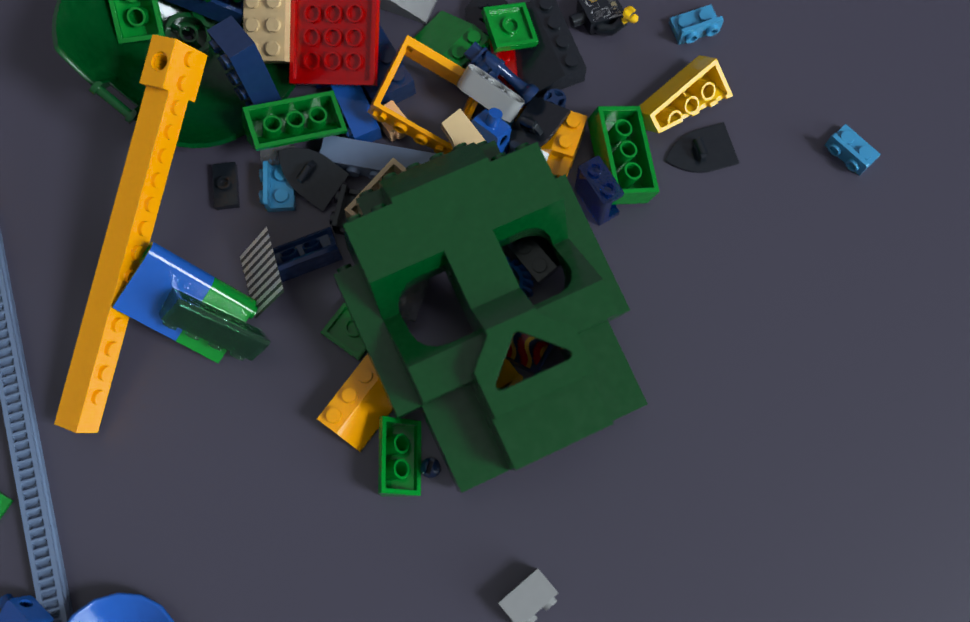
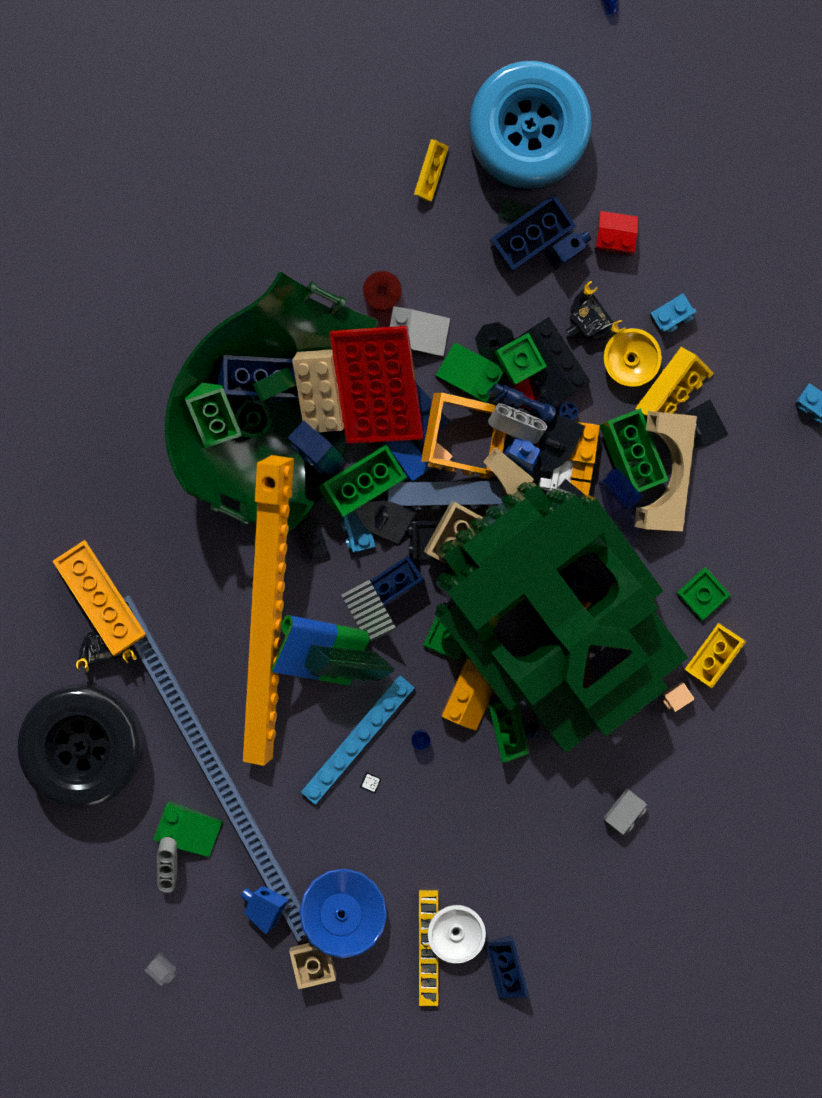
camera: 20 degrees left, 15 degrees up
(207, 433) = (357, 739): none -> dark azure plate
(211, 491) = (370, 782): none -> sticker
(281, 444) = (420, 739): none -> clear blue wheel
(625, 460) = (677, 697): none -> light nougat brick
(643, 44) = (645, 353): none -> yellow dish
(679, 341) = (703, 593): none -> green tile
(680, 142) = (669, 509): none -> tan arch
(681, 417) = (715, 655): none -> yellow slope

